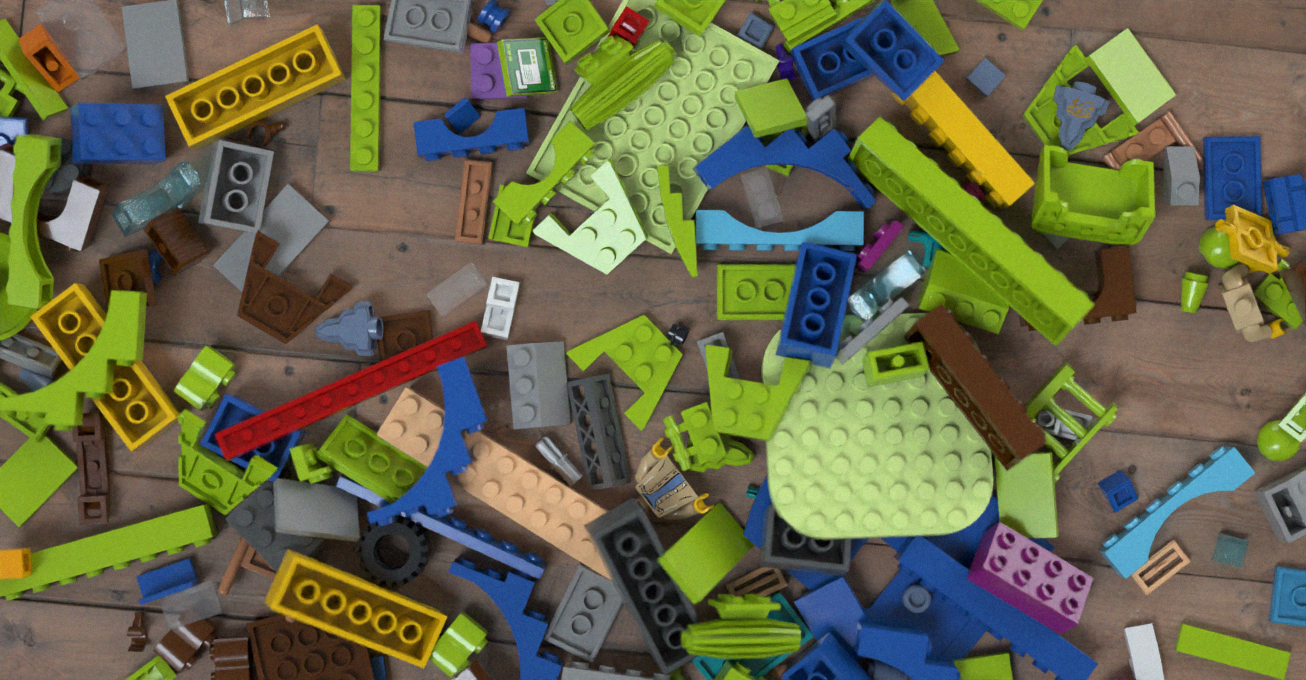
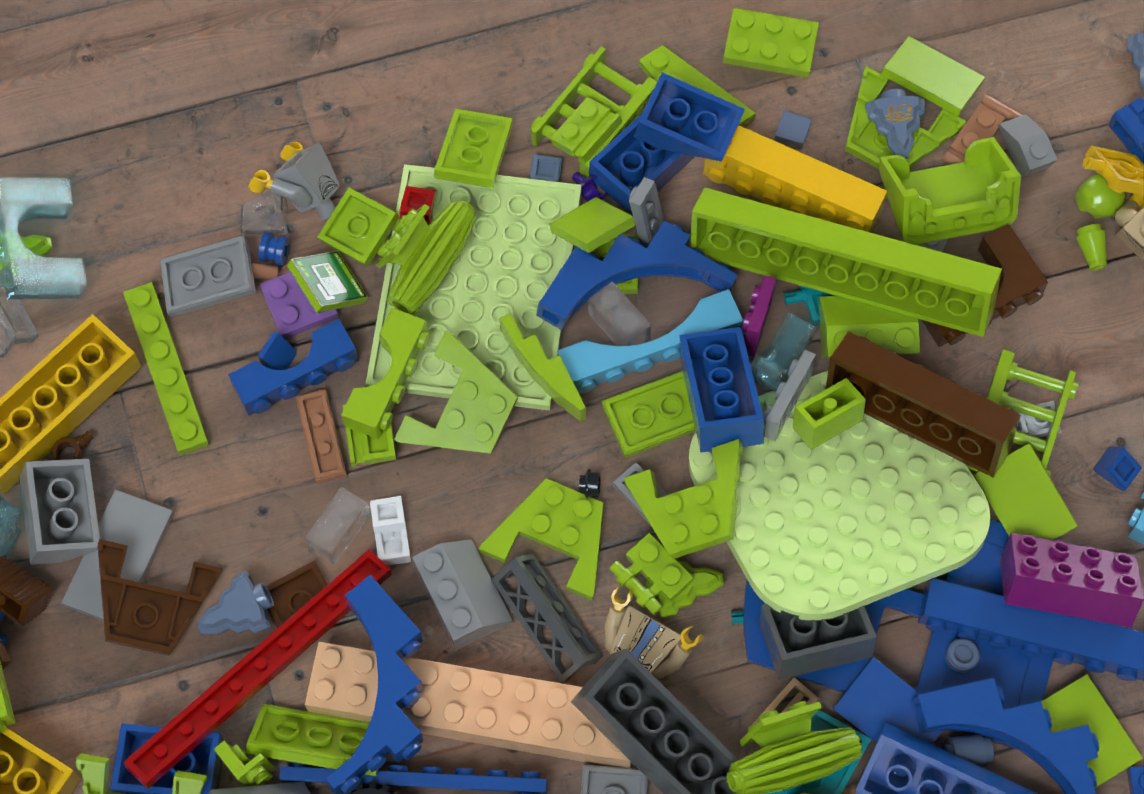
camera: 15 degrees left, 20 degrees down
(206, 378) = (93, 723): lime brick -> none
(558, 460) = (514, 662): light grey axle -> none
(706, 553) = (715, 685): lime tile -> none
(1231, 175) = (1072, 127): blue tile -> none

